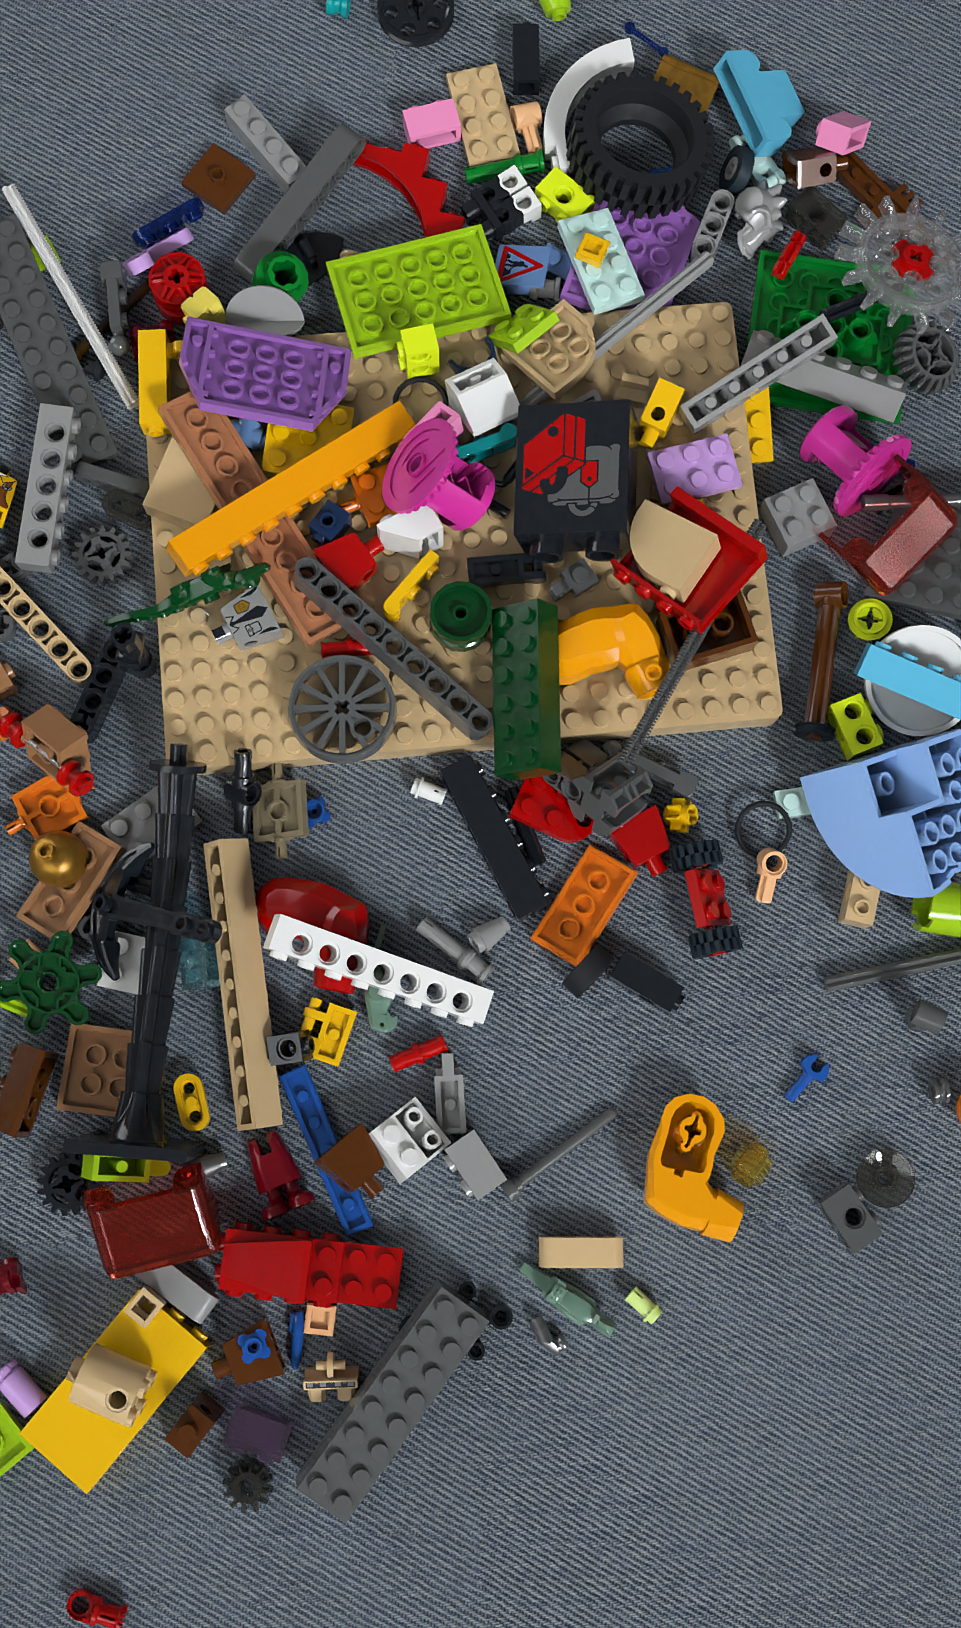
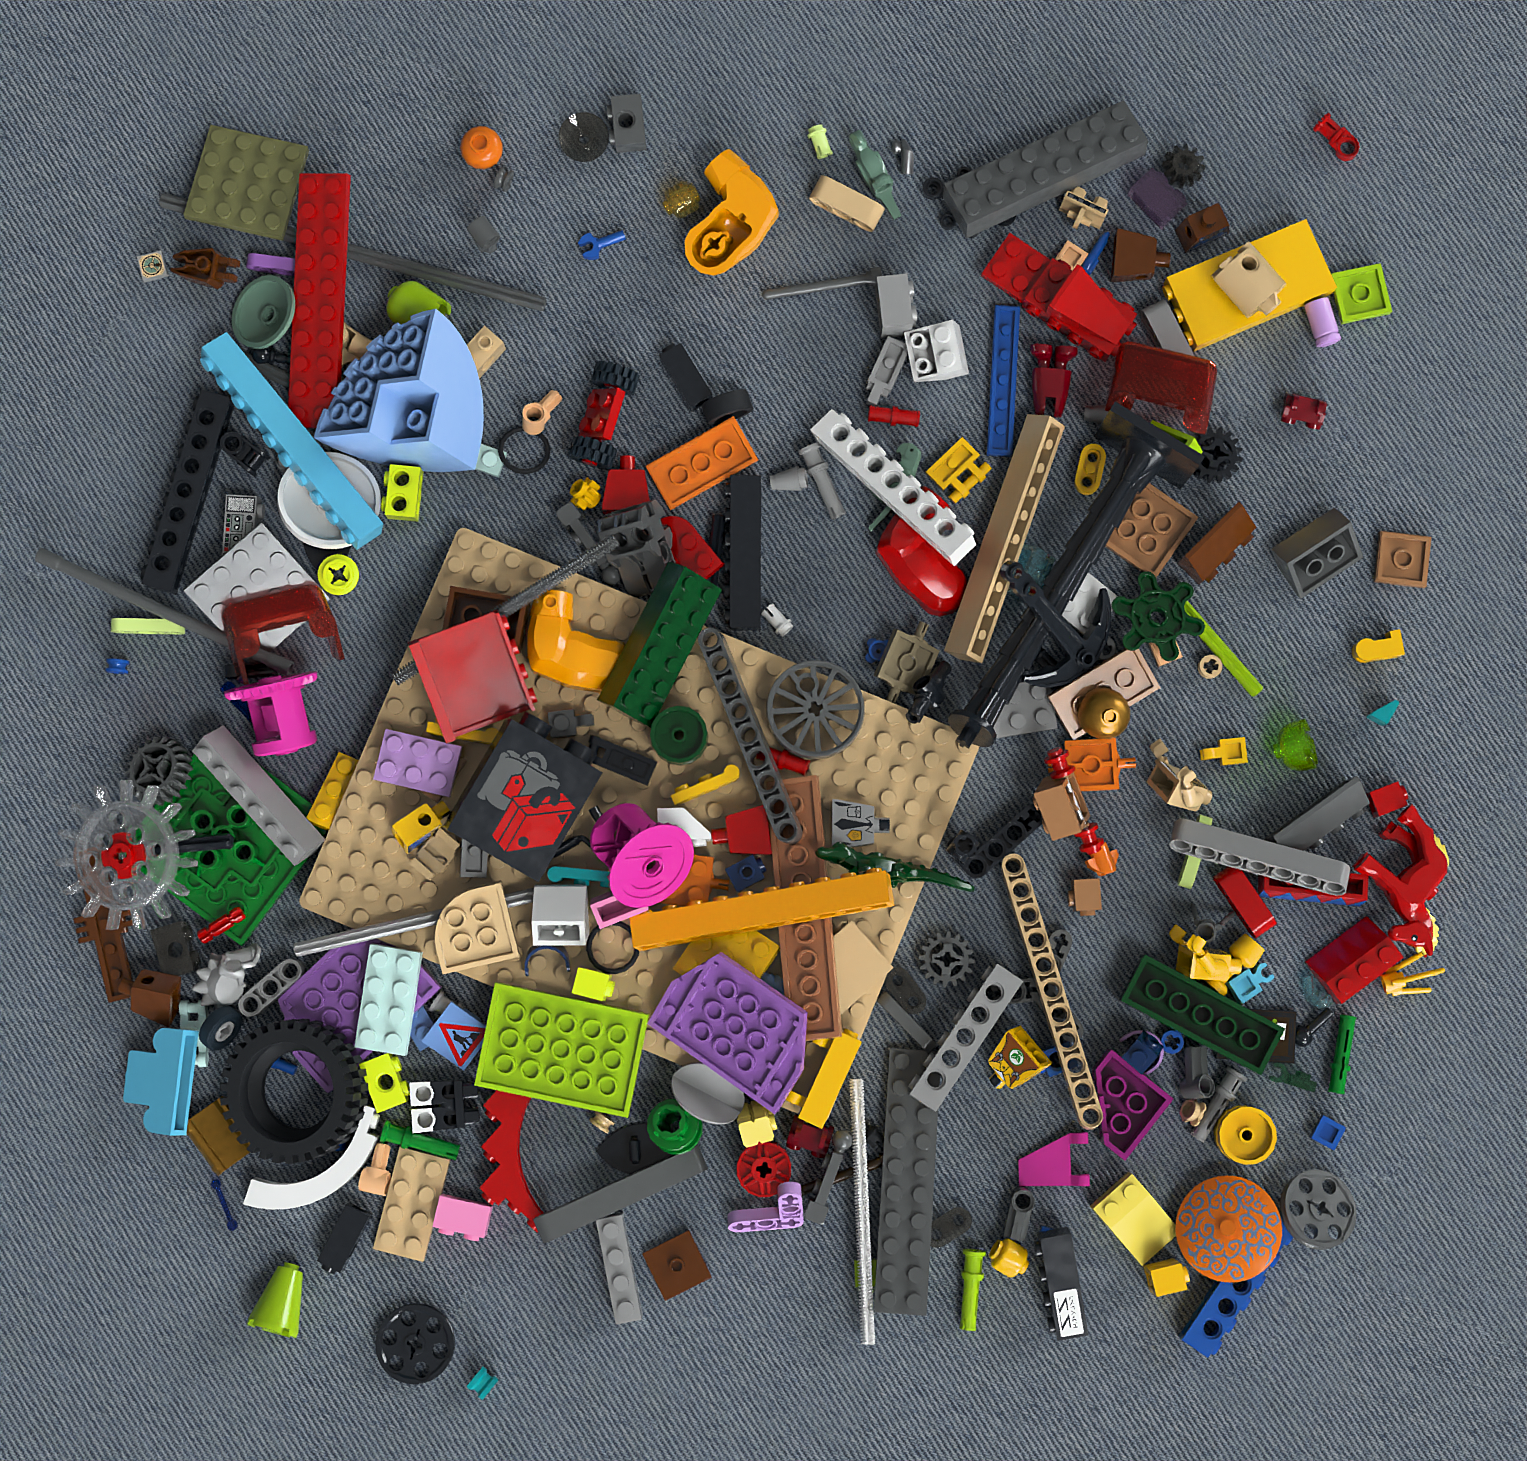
camera: 145 degrees left, 5 degrees up
(140, 1314) = (1204, 323): tan piece -> none
(168, 223) = (742, 1240): clear blue plate -> none
(249, 1353) = (1123, 261): blue plate -> none
(279, 1047) = (1001, 464): black brick -> none
(353, 1162) = (986, 357): reddish brown torso -> none
(523, 327) = (492, 961): lime plate -> none
(592, 250) = (392, 1006): yellow tile -> none
(671, 550) = (484, 690): tan brick -> none
(757, 374) = (320, 812): light grey brick -> none
(797, 517) = (348, 690): light grey brick -> none
(829, 599) = (362, 606): reddish brown piece -> none
(842, 132) = (109, 1012): bright pink piece -> none

